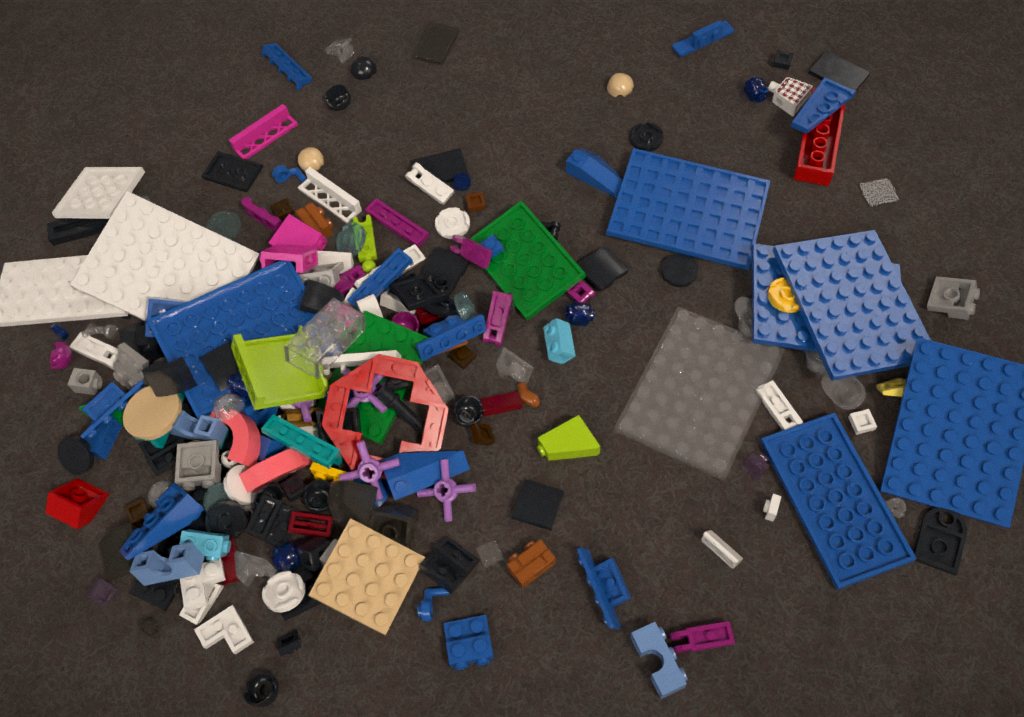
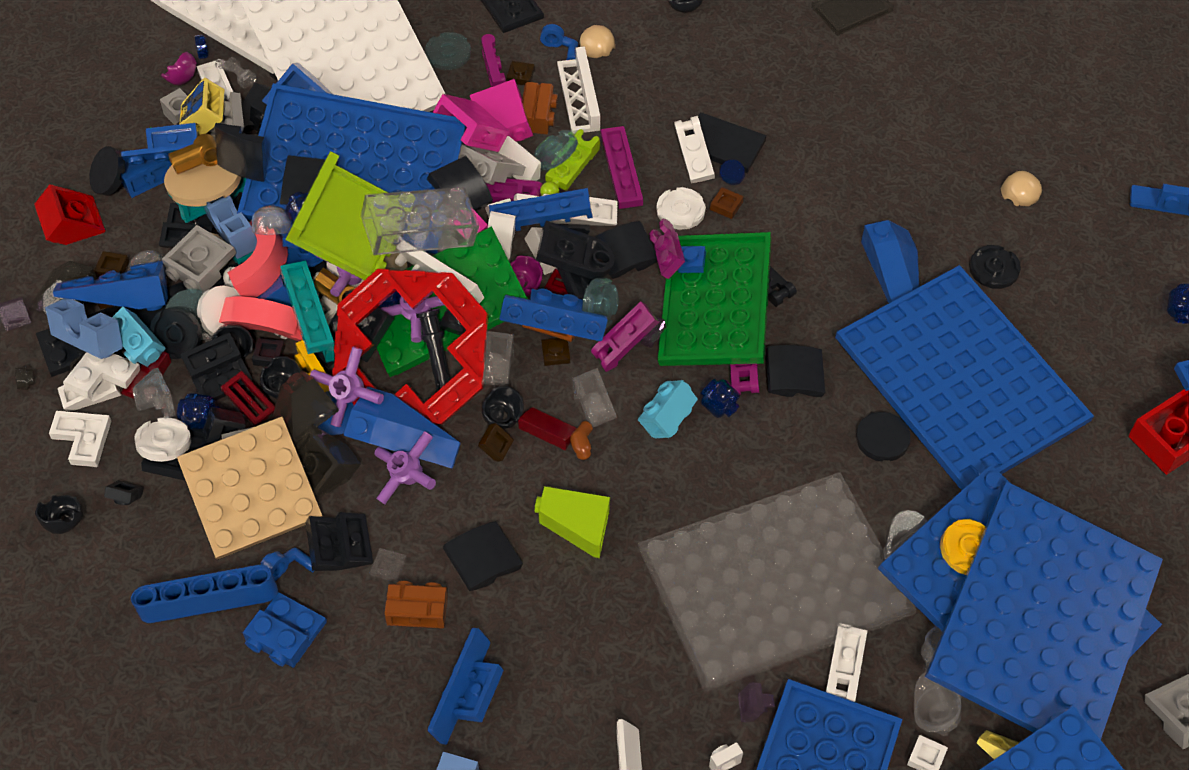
camera: 35 degrees right, 5 degrees down
(105, 368) = (203, 106): none -> light yellow torso
(139, 395) = (200, 152): none -> pearl gold piece
(393, 667) = (204, 593): none -> blue beam

